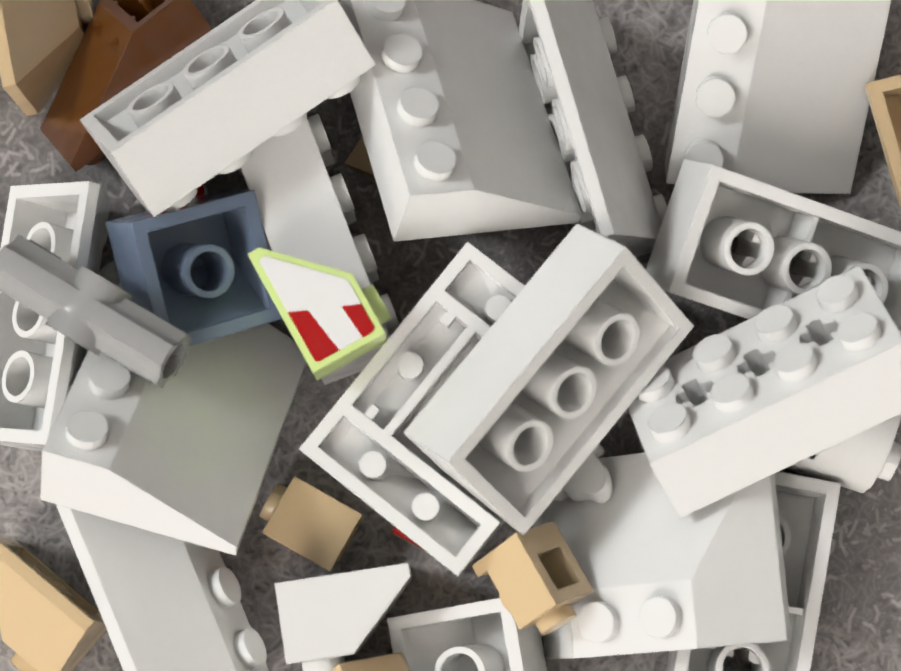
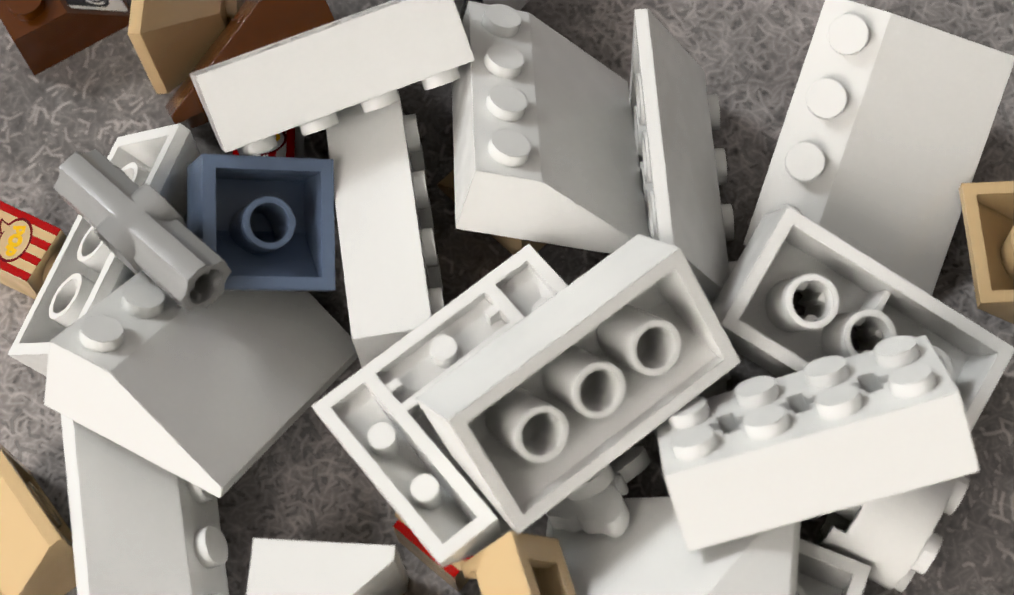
camera: 20 degrees right, 15 degrees down
(310, 522) = (316, 503): tan brick -> none
(322, 309) = (368, 275): slope -> none

